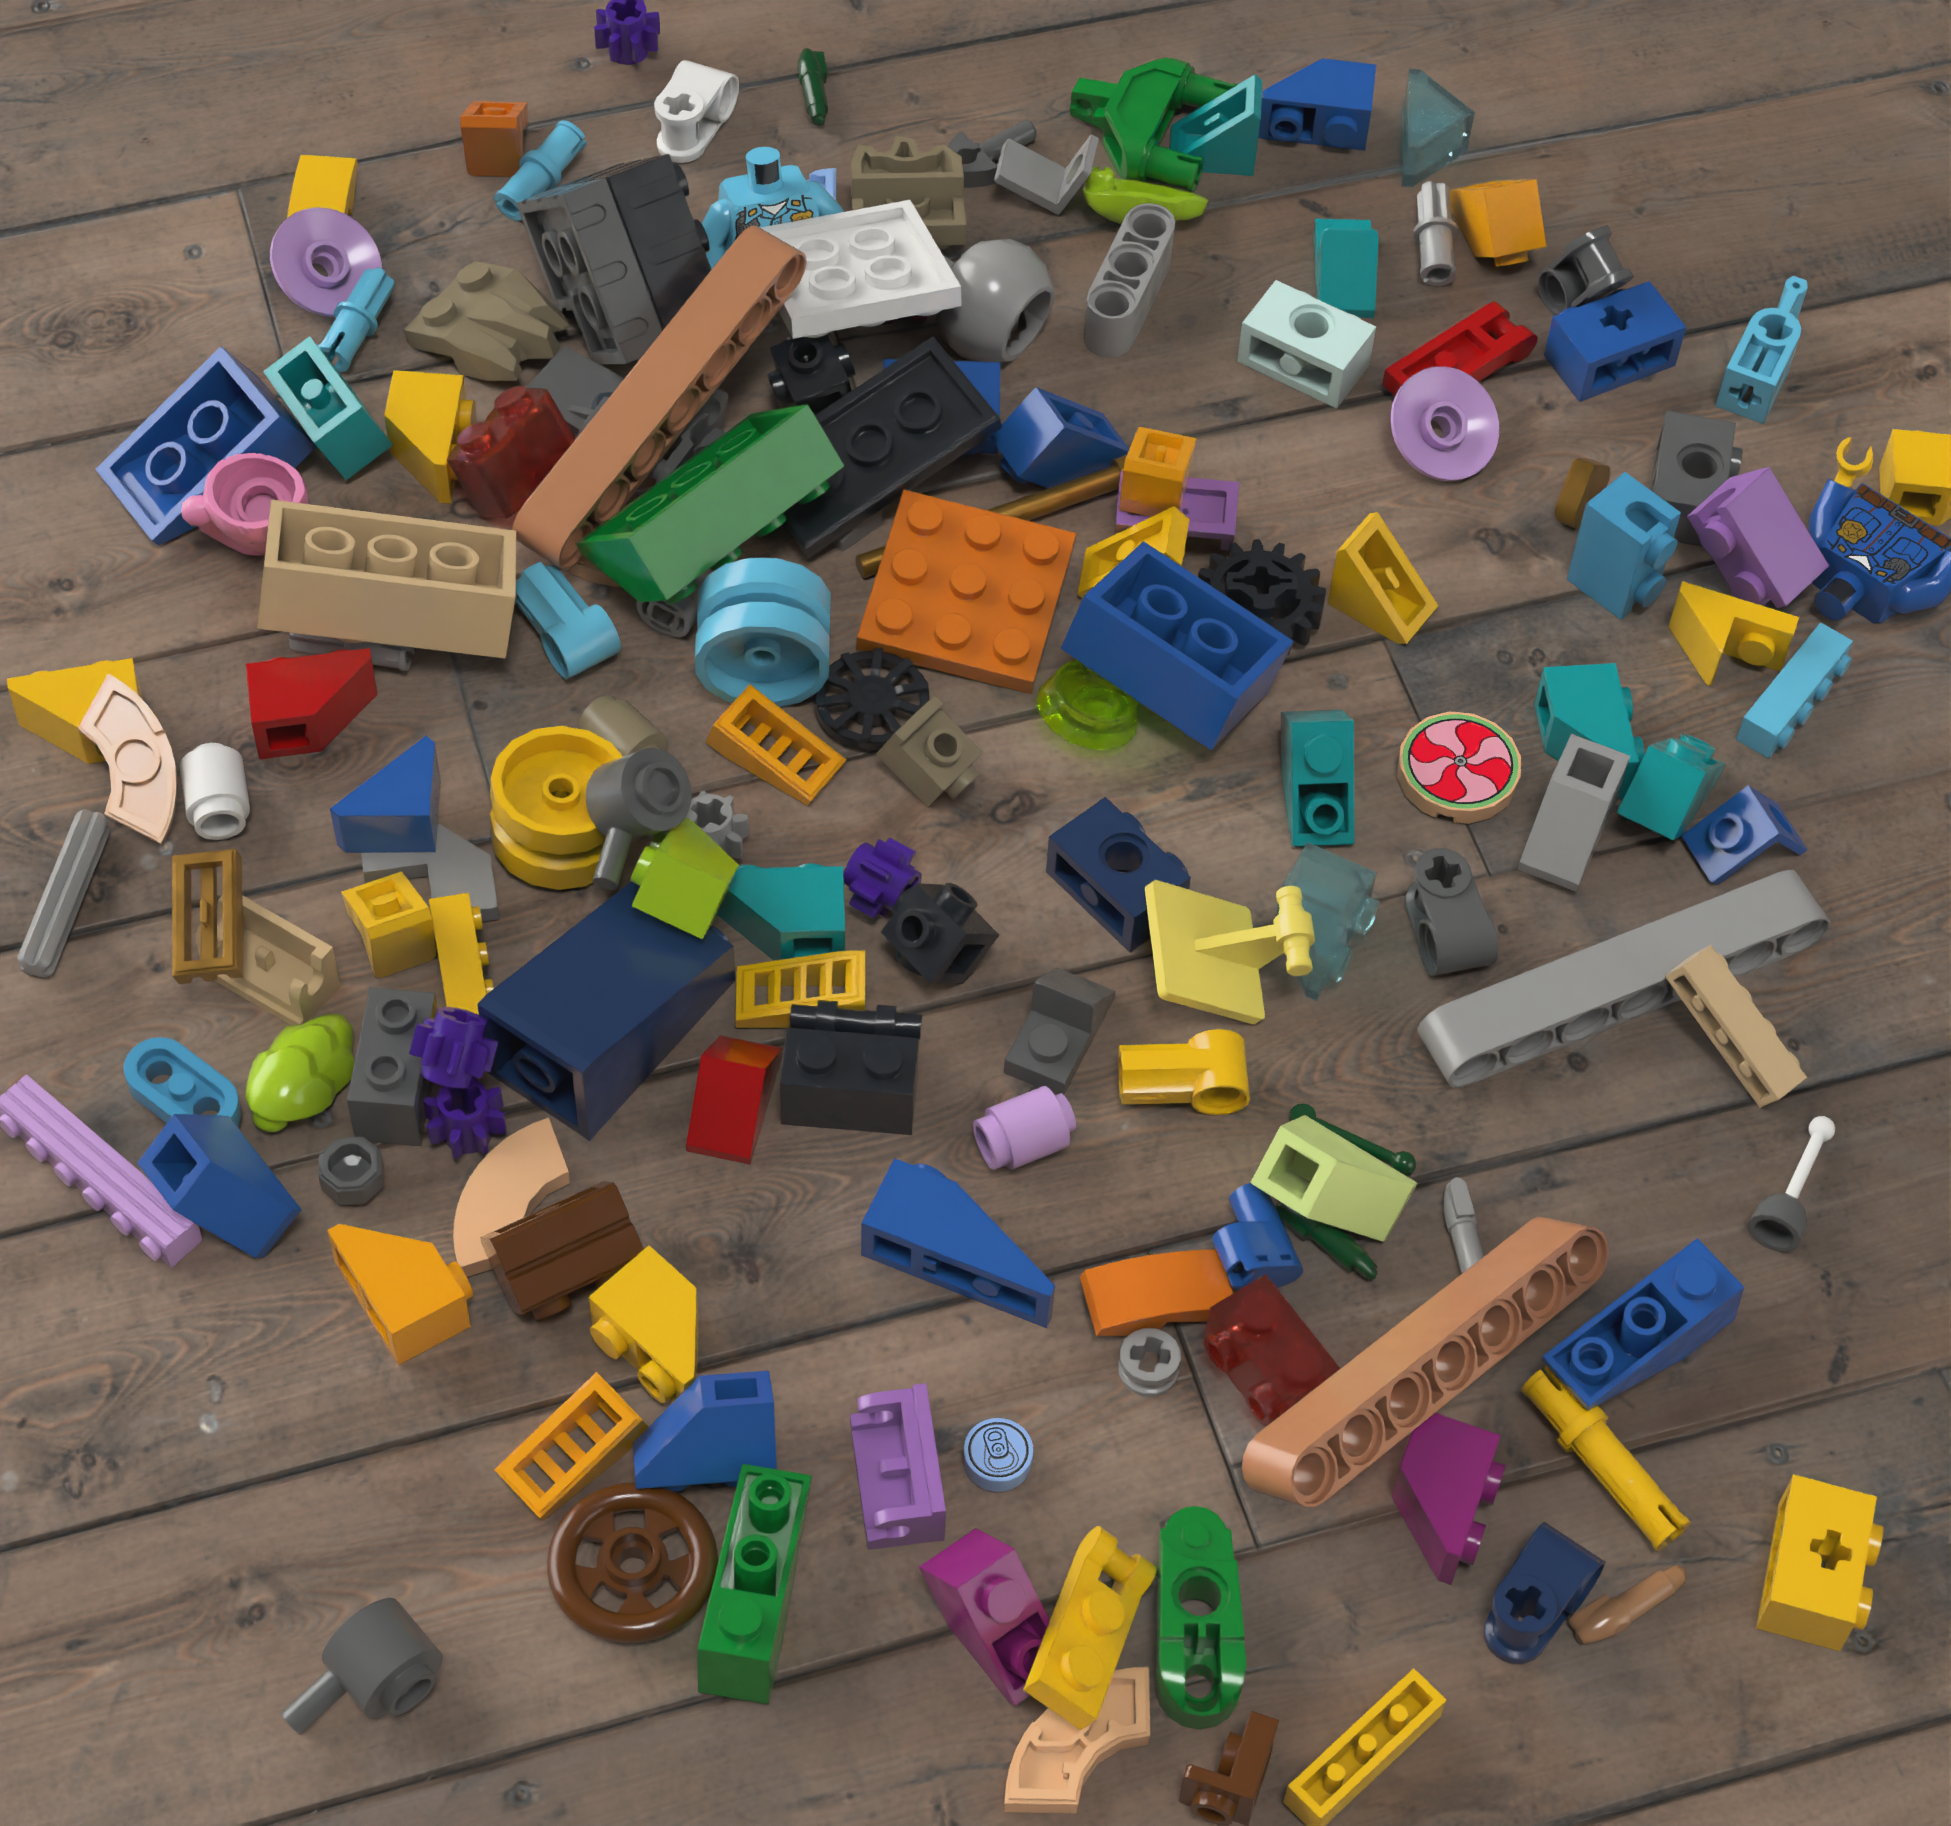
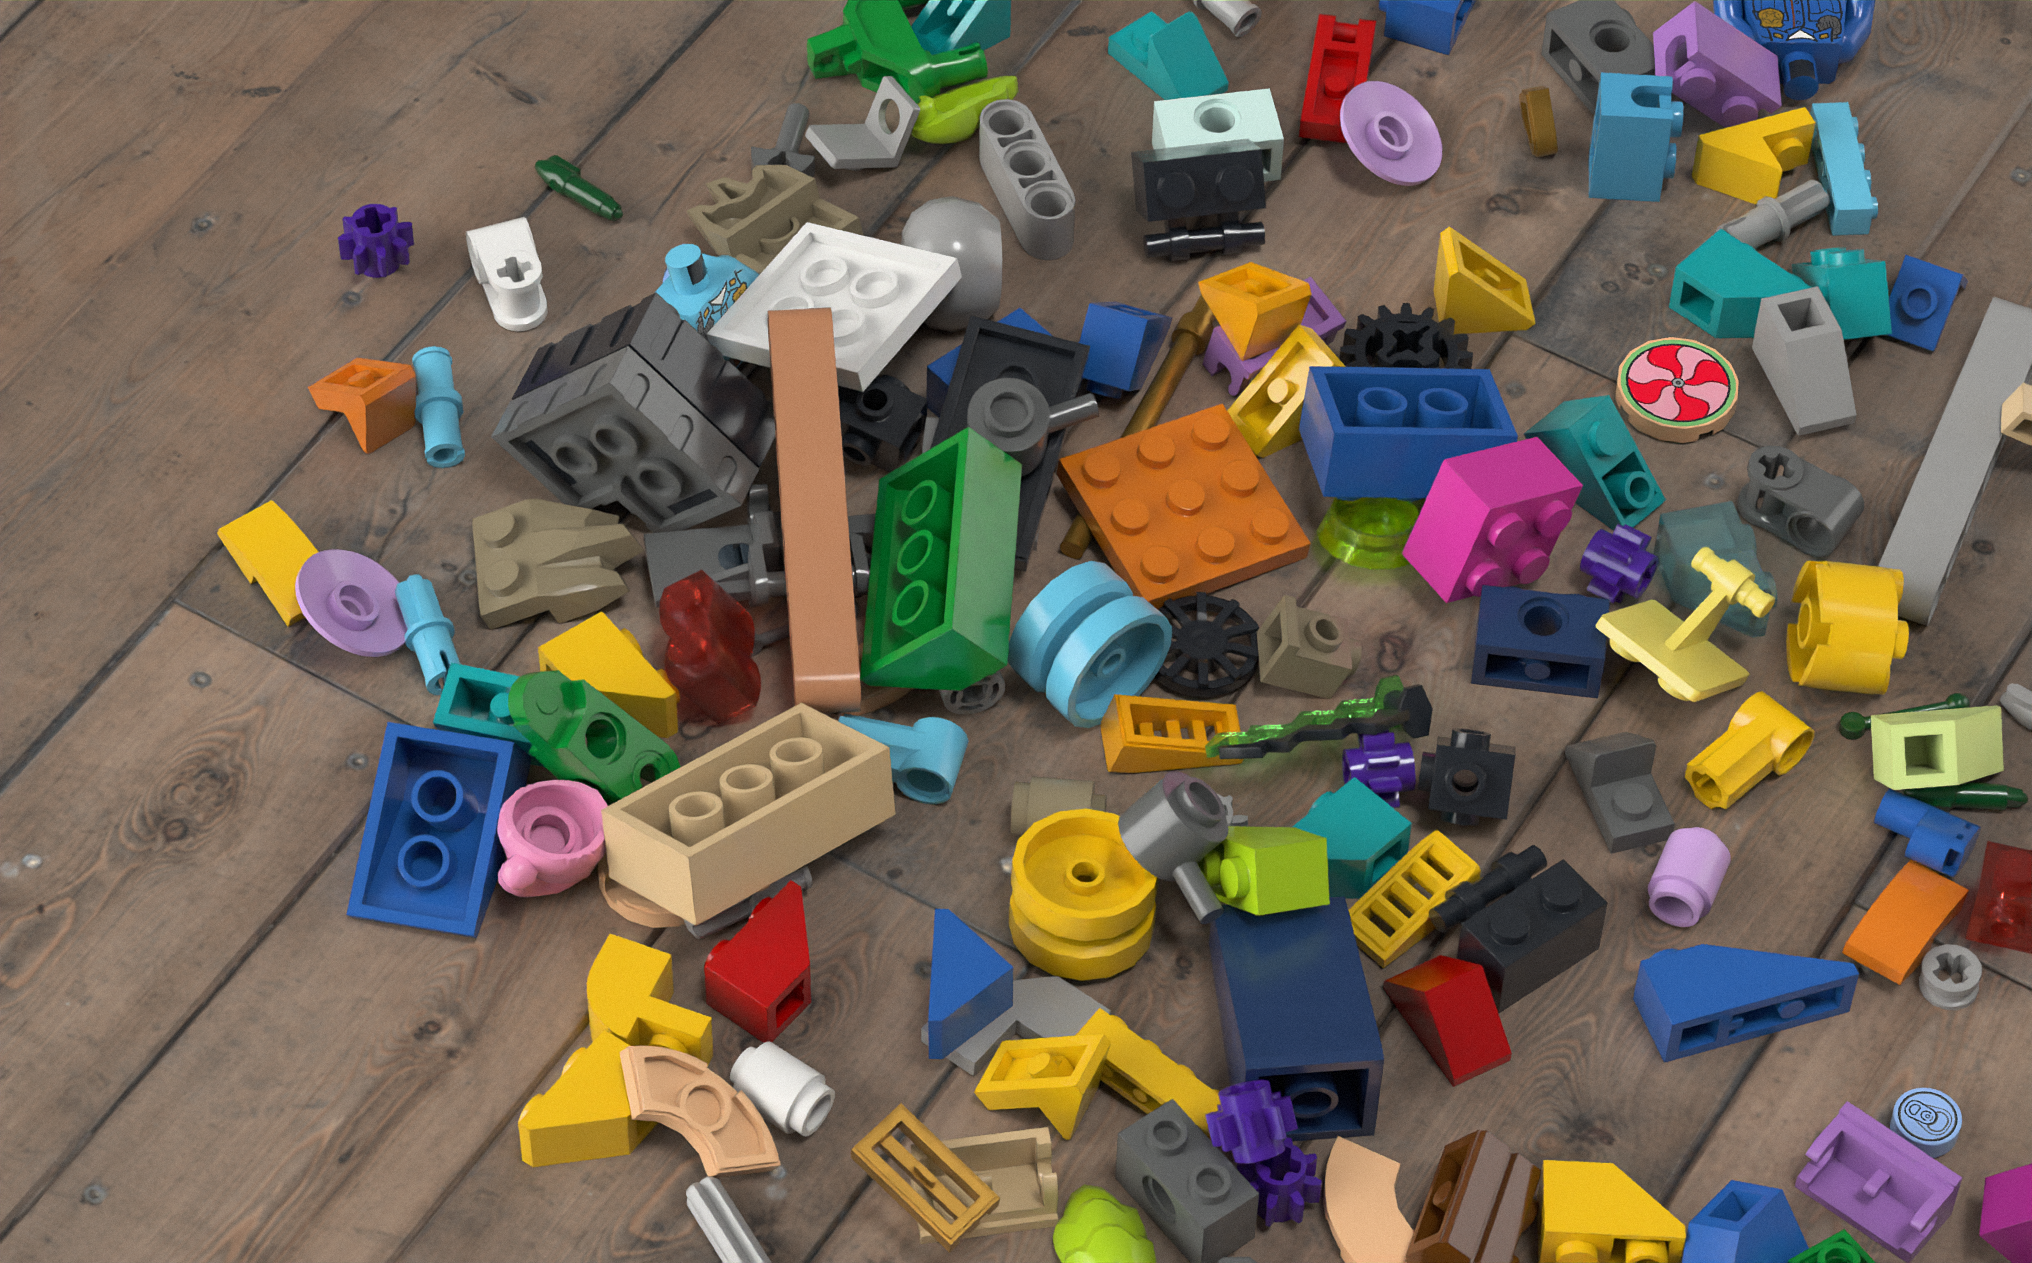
camera: 40 degrees left, 5 degrees down
(183, 658) = (631, 998): none -> yellow brick
(312, 409) = (558, 715): none -> green piece
(871, 437) = (1019, 419): none -> dark grey piece
(879, 816) = (1390, 708): none -> black piece
(1161, 751) = (1492, 519): none -> dark pink brick
(1239, 360) = (1200, 182): none -> black brick
(1244, 860) = (1619, 563): none -> dark purple gear
(1357, 1031) = (1846, 627): none -> yellow brick
(1690, 690) = (1776, 216): none -> light grey axle

